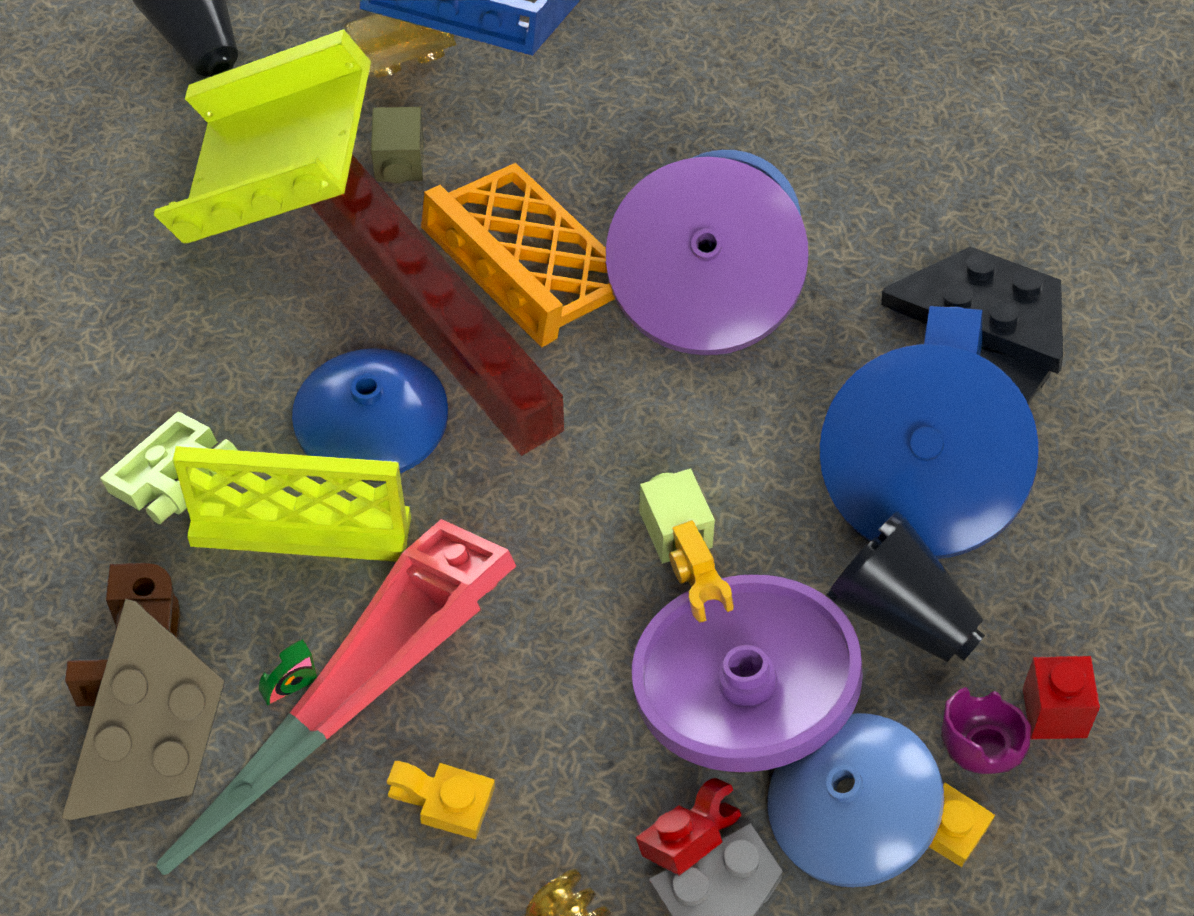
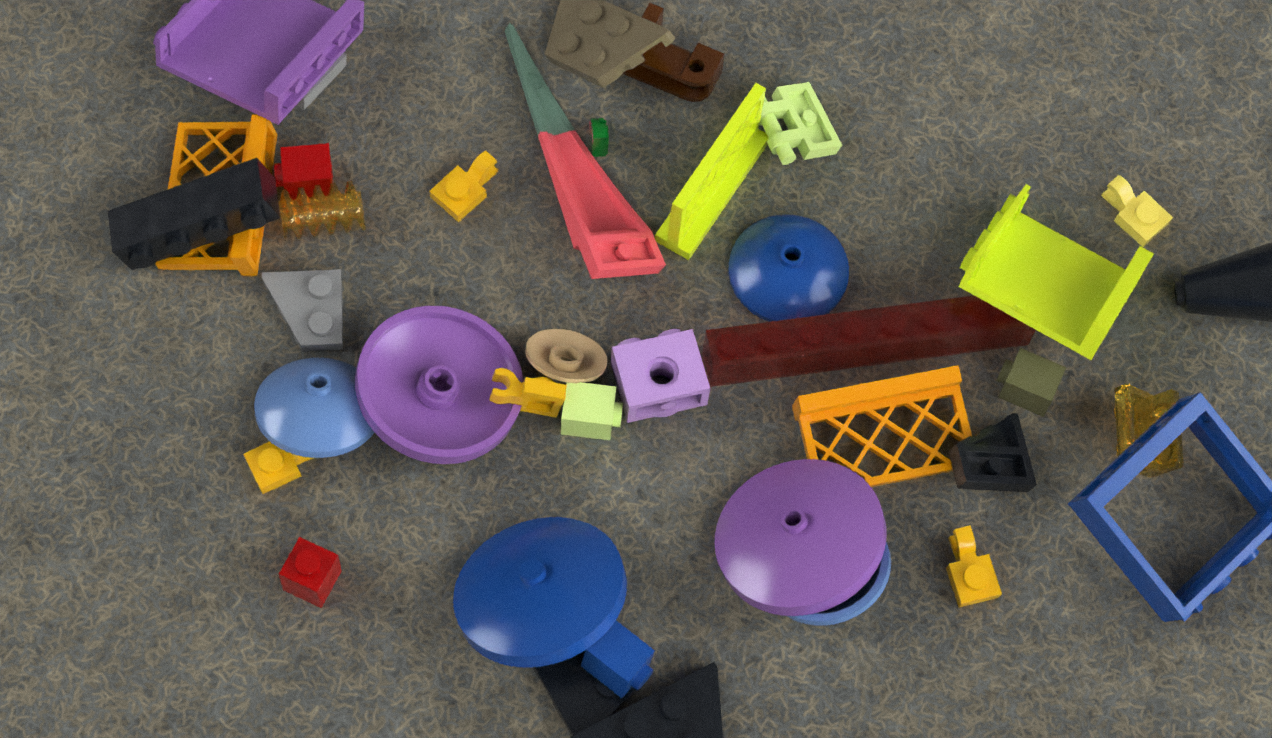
camera: 110 degrees right, 10 degrees up
(130, 129) = (1138, 216): none -> light yellow plate
(506, 143) = (994, 459): none -> black wing
(591, 486) = (669, 354): none -> lavender brick
(623, 565) = (566, 355): none -> tan dish
(641, 129) = (971, 576): none -> yellow plate
(687, 835) = (356, 300): red plate -> none
(908, 593) = (439, 517): black cone -> none
(984, 733) = (315, 509): magenta hair -> none

